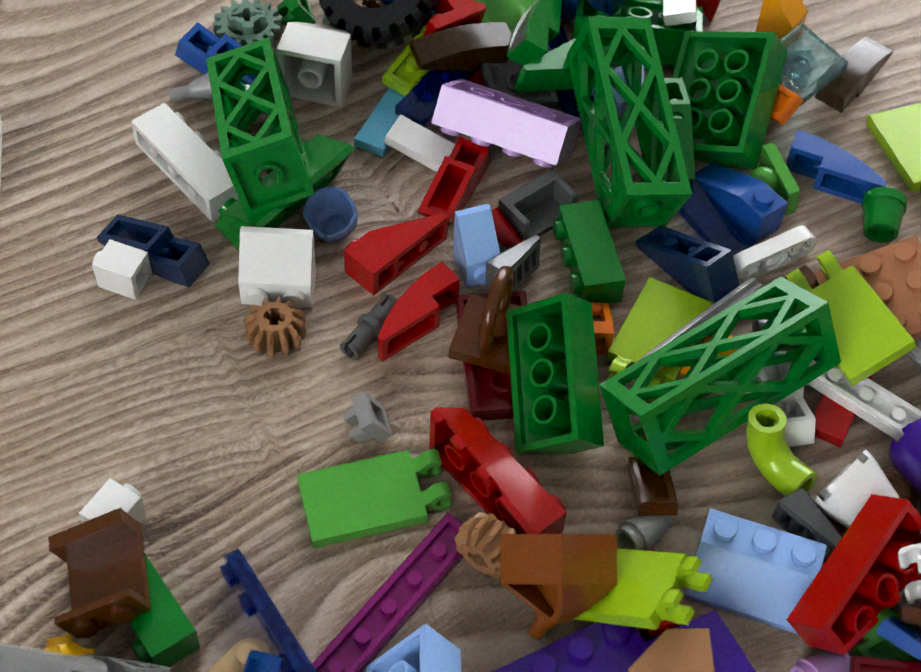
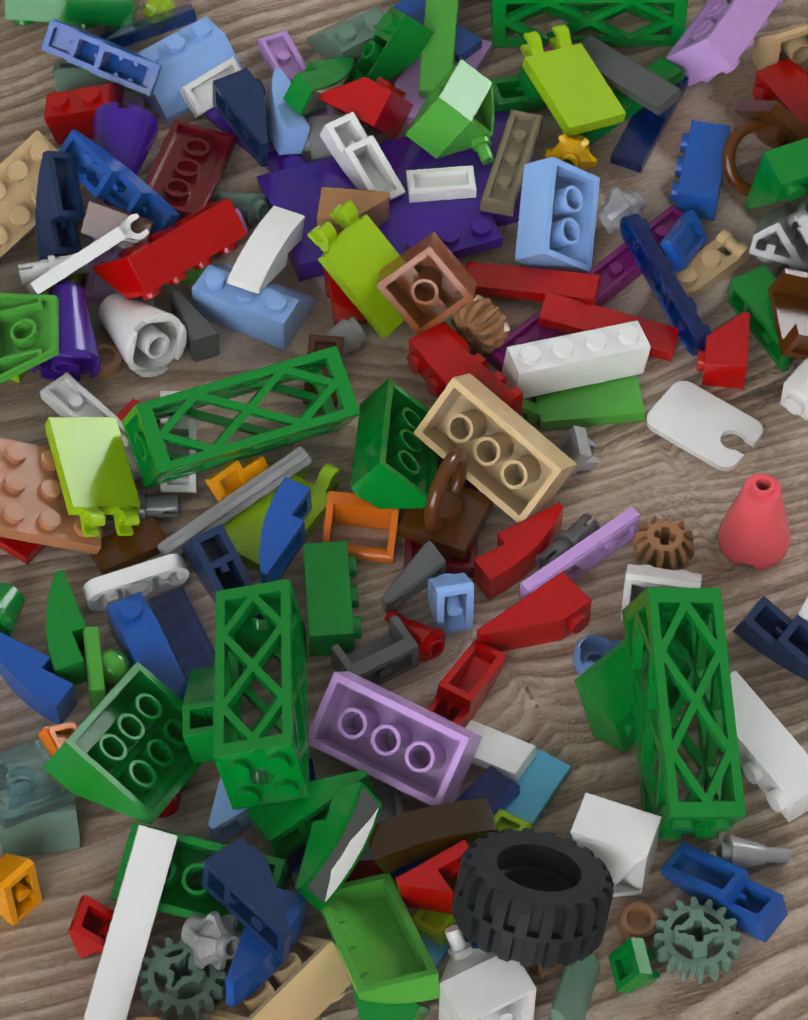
camera: 170 degrees left, 0 degrees up
(181, 346) = (756, 524): none -> coral cone
(201, 551) = (726, 354): none -> red slope
(239, 485) = (699, 421): none -> white piece
(342, 574) = (578, 316): none -> red tile
(344, 316) = (587, 552): none -> lavender tile
(375, 494) = (576, 359): none -> white brick
(452, 371) = (504, 452): none -> tan brick
(465, 627) = (532, 283): none -> red tile
(648, 293) = (283, 529): none -> blue slope
(756, 591) = (267, 250): none -> white slope
(771, 453) = (200, 368): lime cylinder -> none
(818, 206) = (65, 631): none -> green slope

